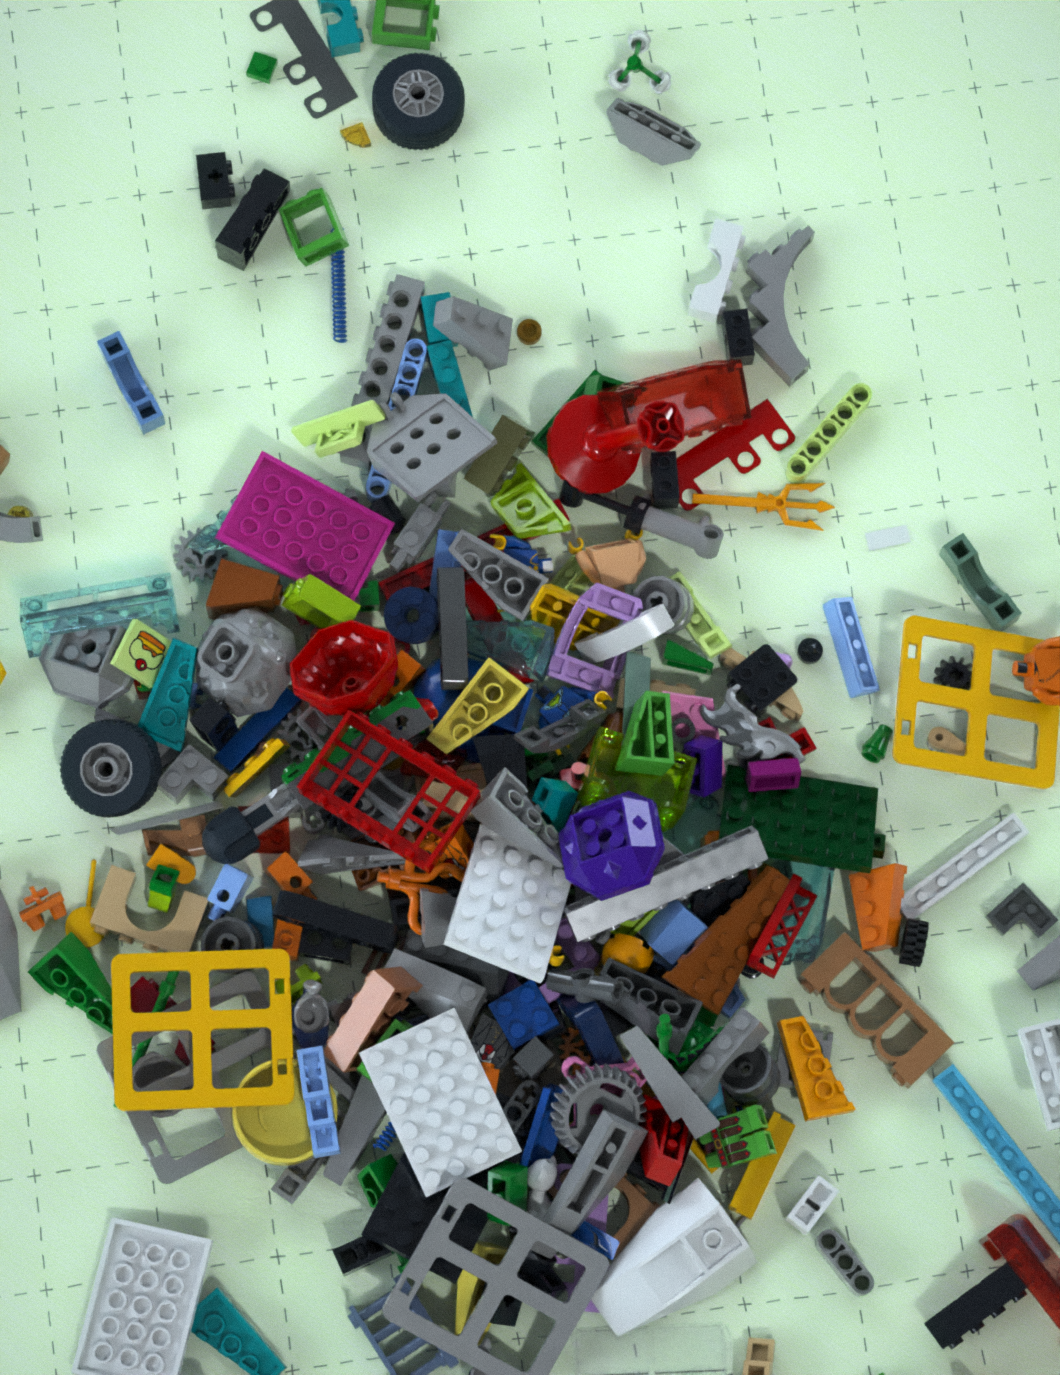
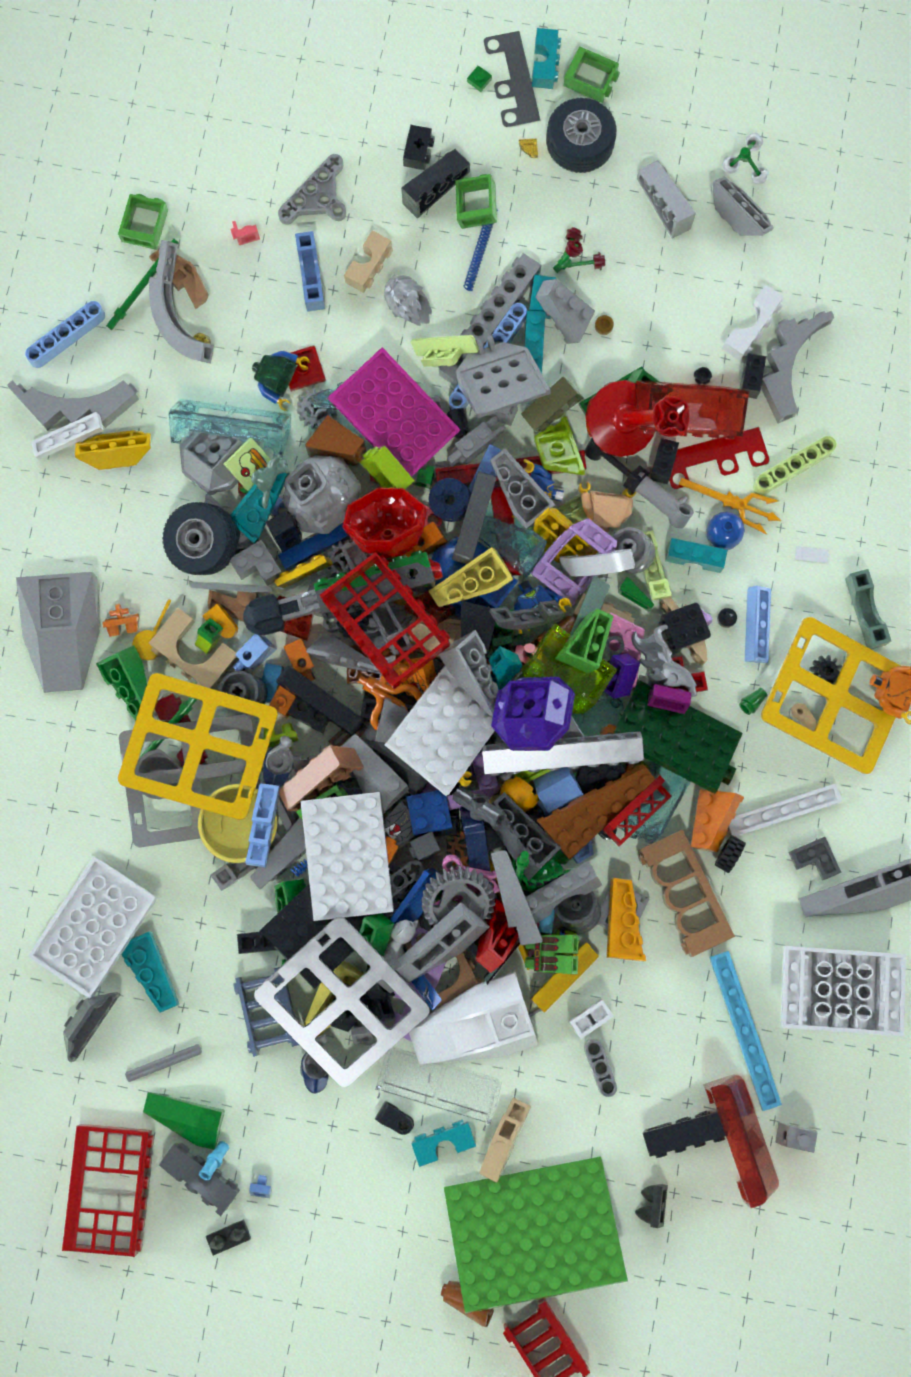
camera: 25 degrees right, 5 degrees up
(31, 360) = (246, 234): none -> coral bracket
(110, 269) = (324, 188): none -> light grey beam
(132, 528) = (275, 374): none -> clear green torso
(162, 509) = (312, 375): none -> red tile
(172, 662) = (265, 477): none -> sand green animal
(198, 366) = (361, 275): none -> tan arch
(268, 379) = (407, 299): none -> light grey head
(461, 249) = (574, 249): none -> dark red plant
(532, 1324) = (361, 1035): none -> light grey tile
(553, 148) = (666, 199): none -> light grey wedge
(675, 351) = (702, 371): none -> black plate
(758, 582) = (708, 557): none -> teal arch
(770, 542) = (725, 530): none -> blue cylinder

